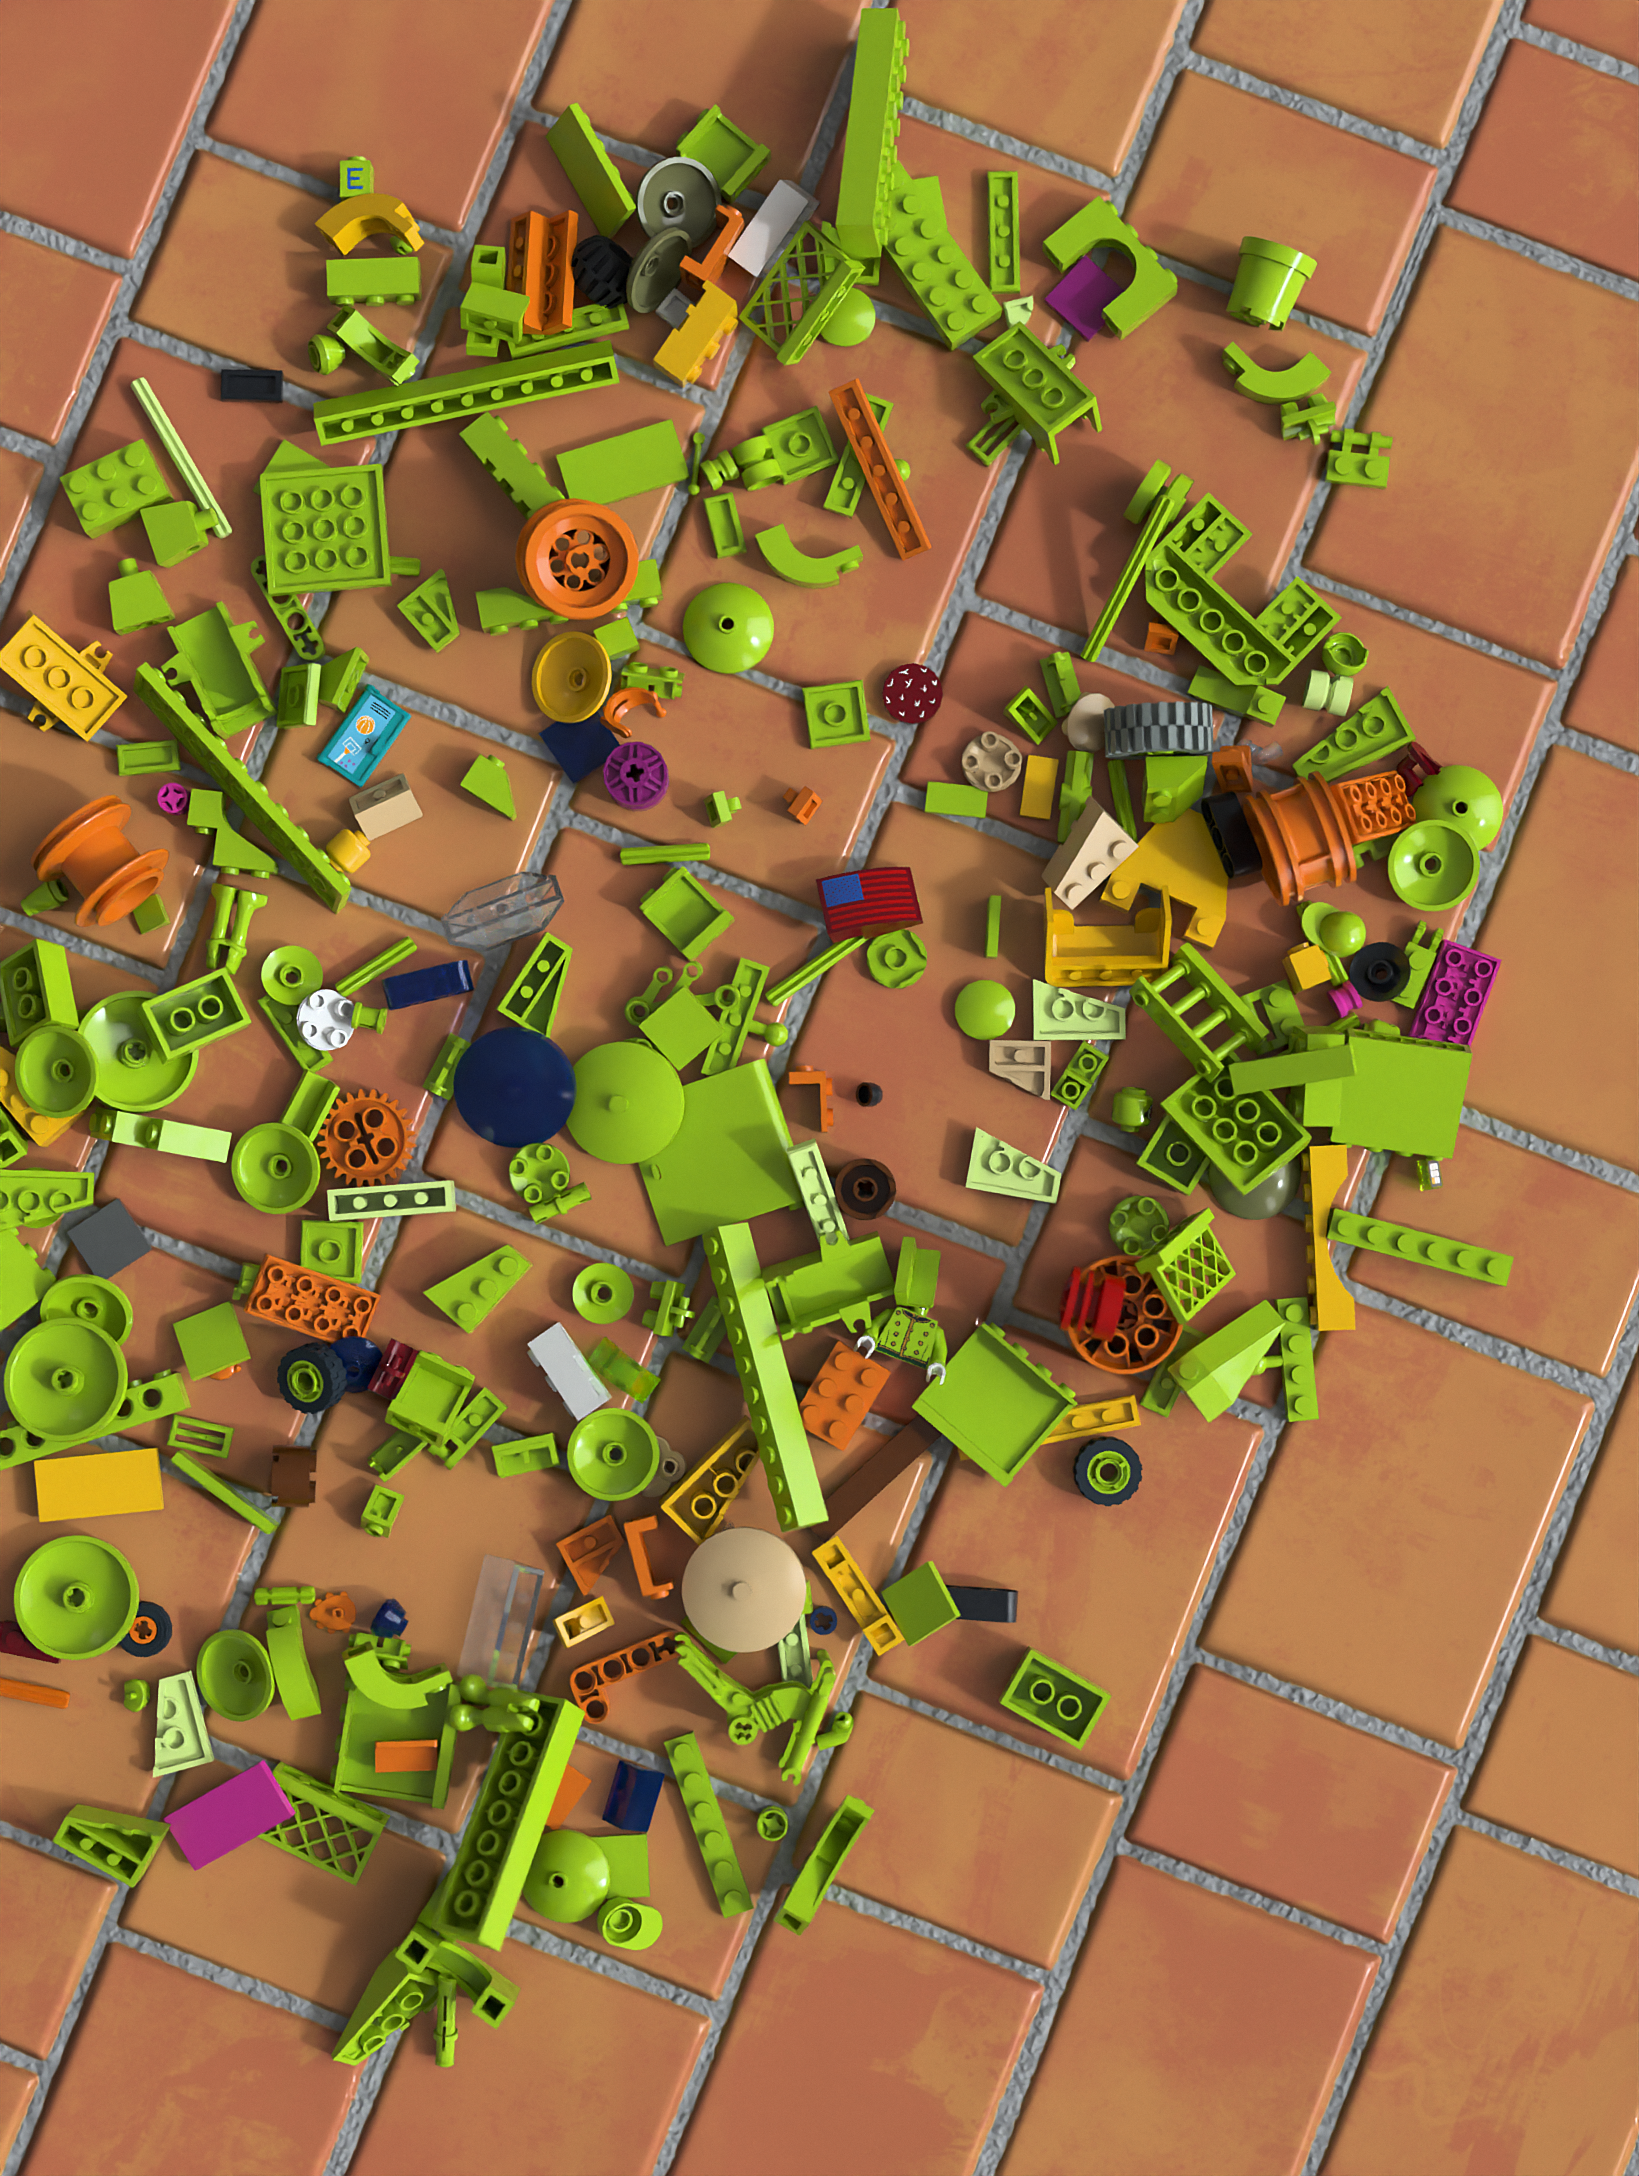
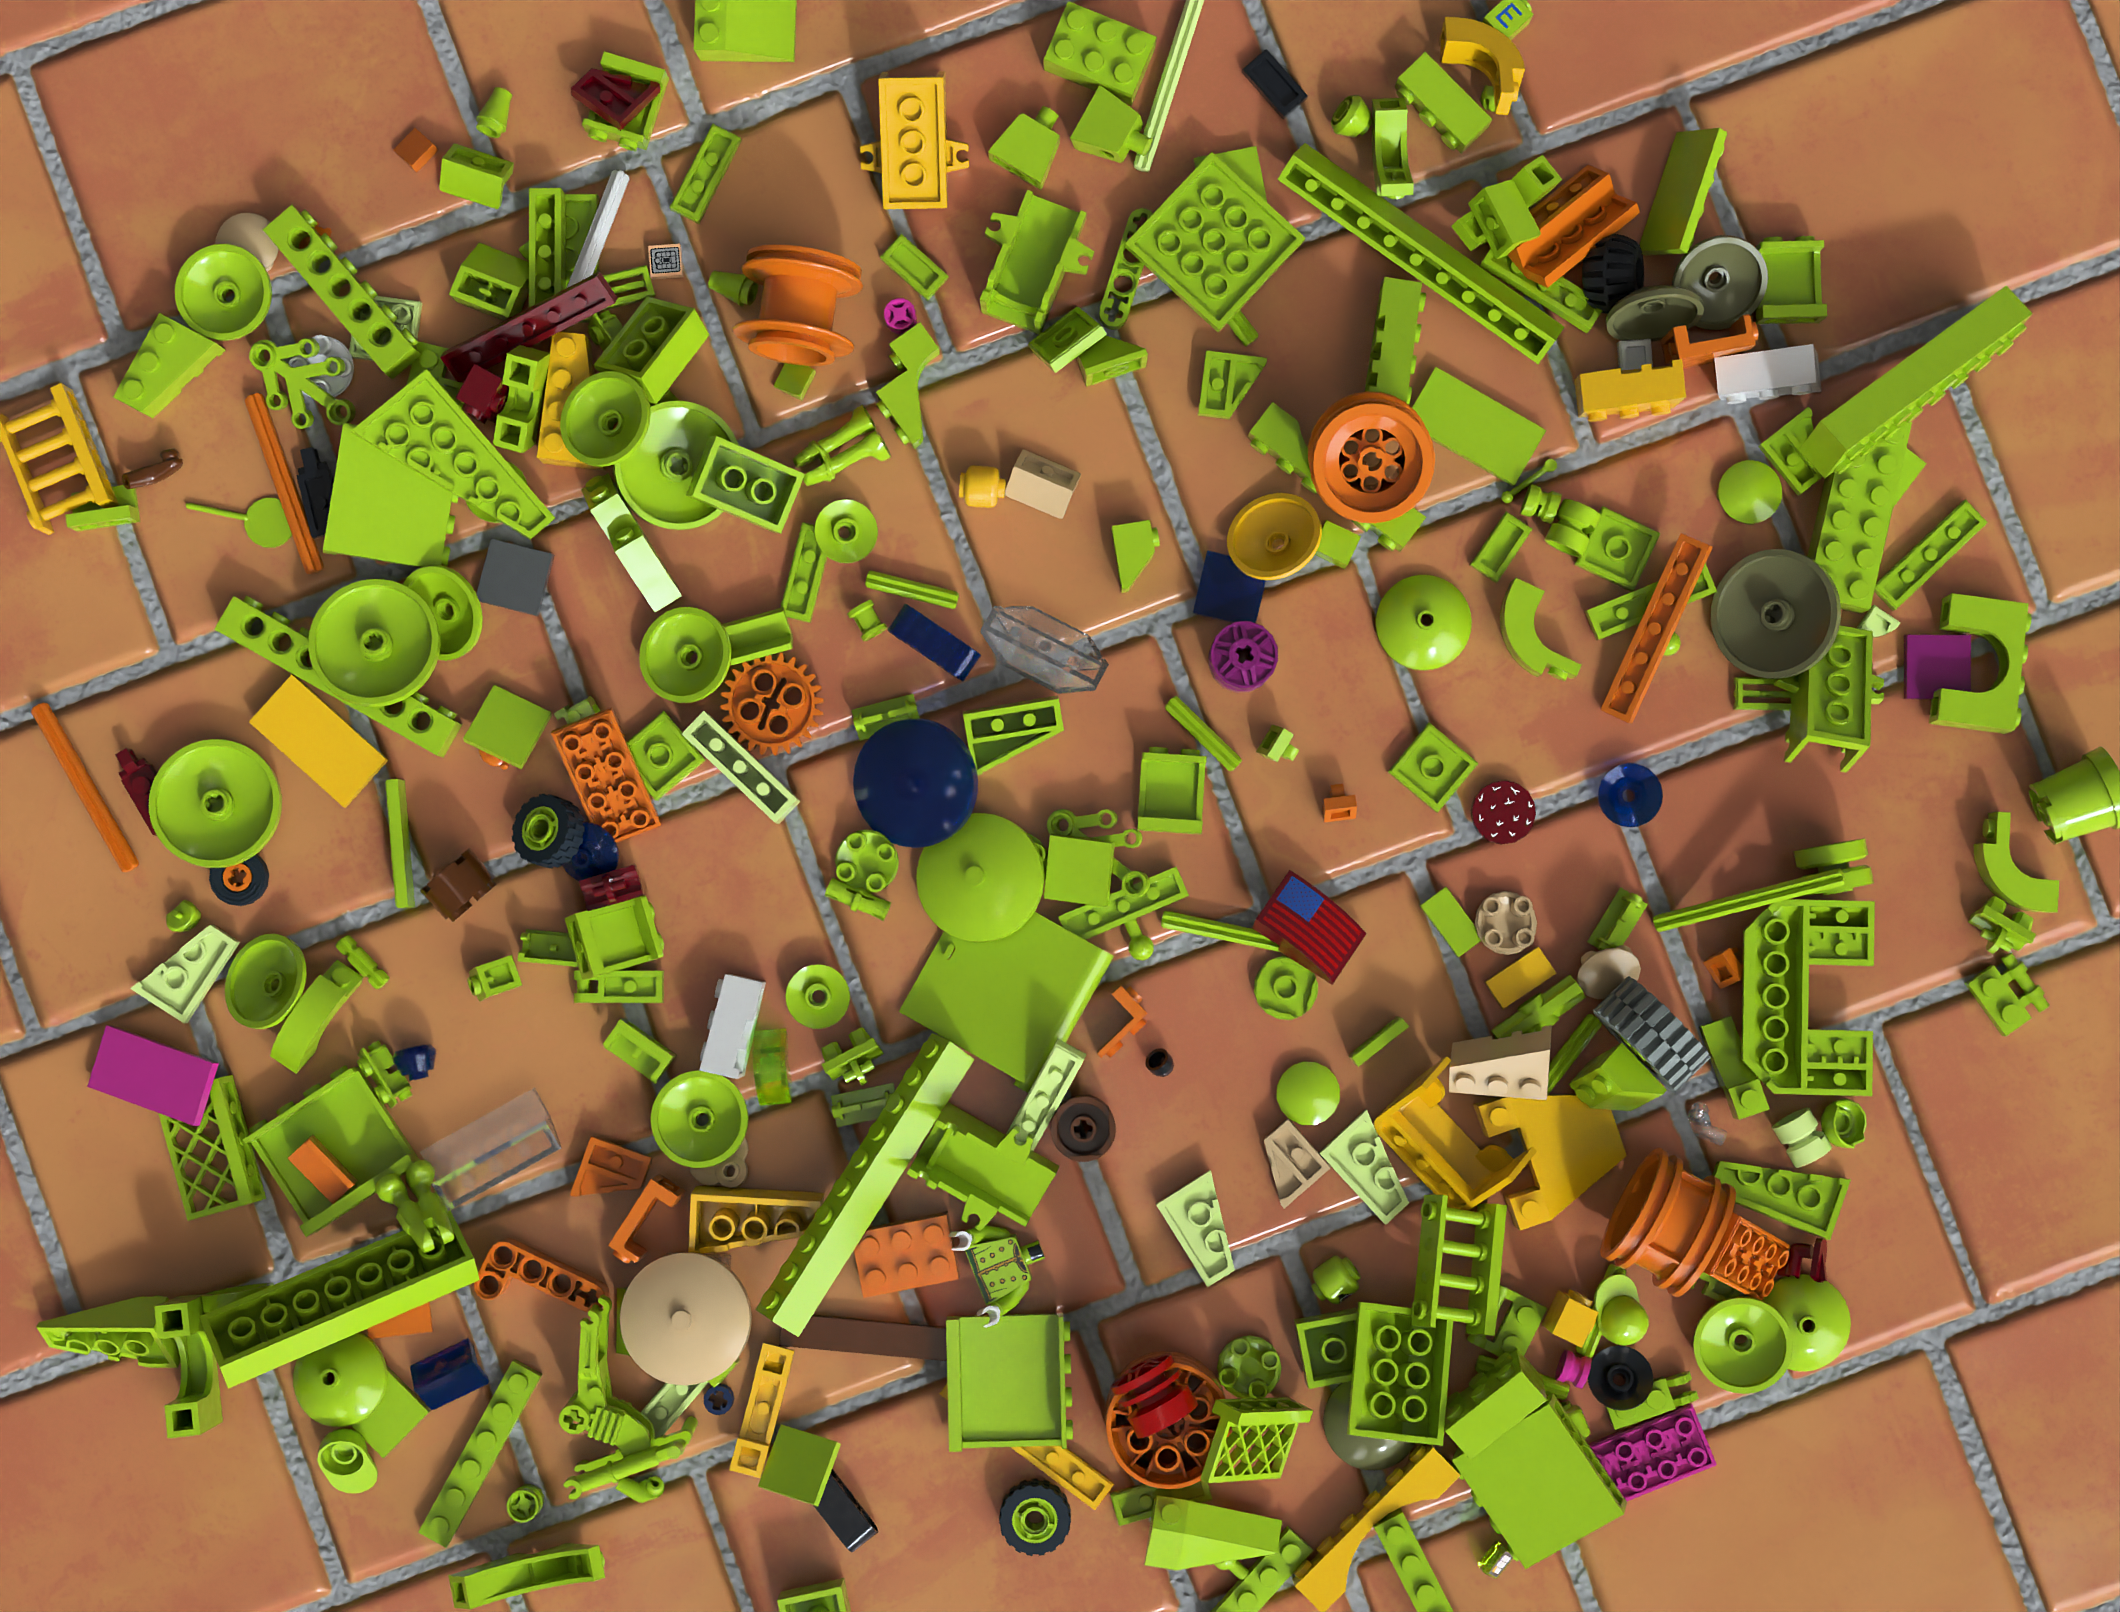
camera: 50 degrees right, 0 degrees up
(112, 1841) = (52, 1001): lime wedge -> none
(226, 1442) = (440, 808): lime tile -> none
(245, 792) = (955, 358): lime plate -> none
(325, 1020) = (835, 588): white dish -> none
(334, 1613) = (383, 1012): orange piece -> none
(365, 731) = (1082, 417): door -> none
(388, 1688) = (361, 1111): lime arch -> none
(445, 2032) = (136, 1395): lime pin -> none
(480, 1287) = (731, 896): lime wedge -> none
(583, 1622) = (548, 1213): yellow slope -> none
(622, 702) = (1289, 593): orange helmet -> none
(664, 679) = (1337, 609): lime hinge -> none
(814, 314) = (1744, 467): lime fence -> none
(916, 1275) = (1052, 1229): lime panel -> none
(945, 377) = (1775, 614): none -> olive dish
(985, 579) = (1646, 795): none -> clear blue dish
(1030, 715) = (1570, 920): lime slope -> none
(1079, 1075) = (1324, 1214): lime slope -> none
(1231, 835) = (1621, 1163): black beam -> none
(1233, 768) = (1675, 1118): orange slope -> none
(1293, 1069) = (1482, 1384): lime tile -> none

